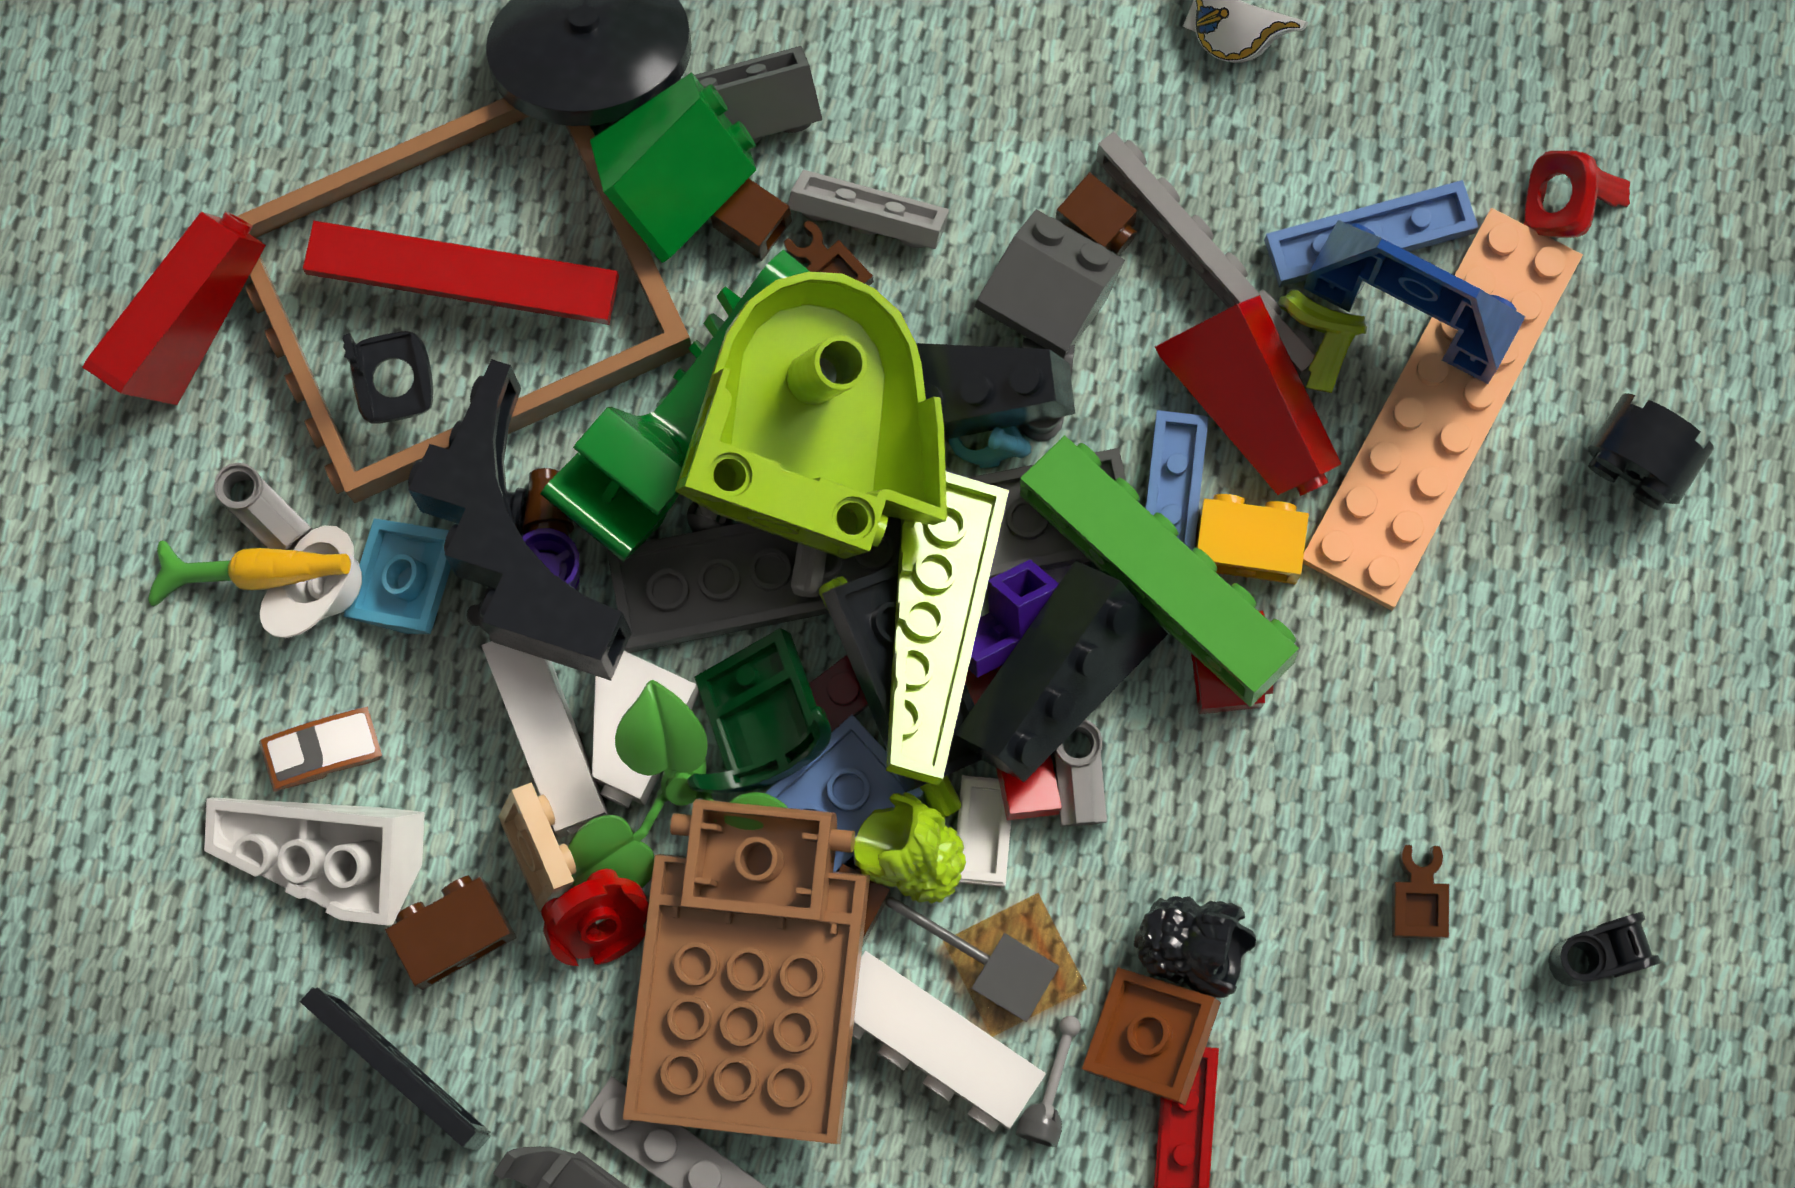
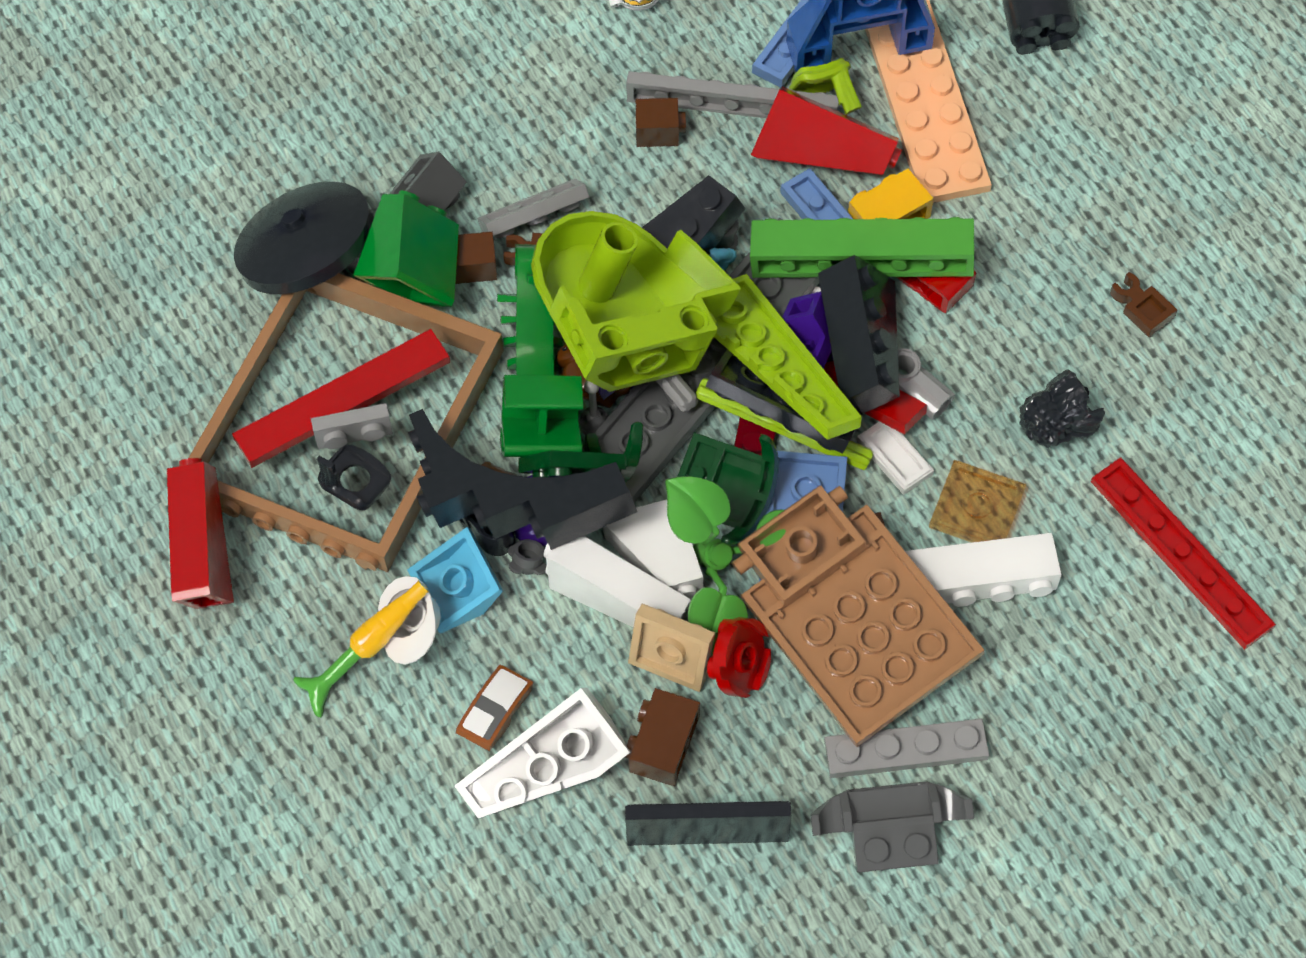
camera: 45 degrees left, 15 degrees down
(263, 512) = (343, 611): light grey piece -> none
(417, 309) = (352, 426): none -> light grey plate
(616, 583) = (568, 462): none -> dark green piece
(910, 850) = (873, 481): lime hair -> none
(1012, 974) = (982, 506): dark grey piece -> none
(1041, 1121) = (1069, 564): hinge -> none
(1050, 283) = (665, 161): dark grey slope -> none
(1151, 1035) = (1083, 474): dark orange plate -> none
(1611, 950) = (1256, 255): black piece -> none

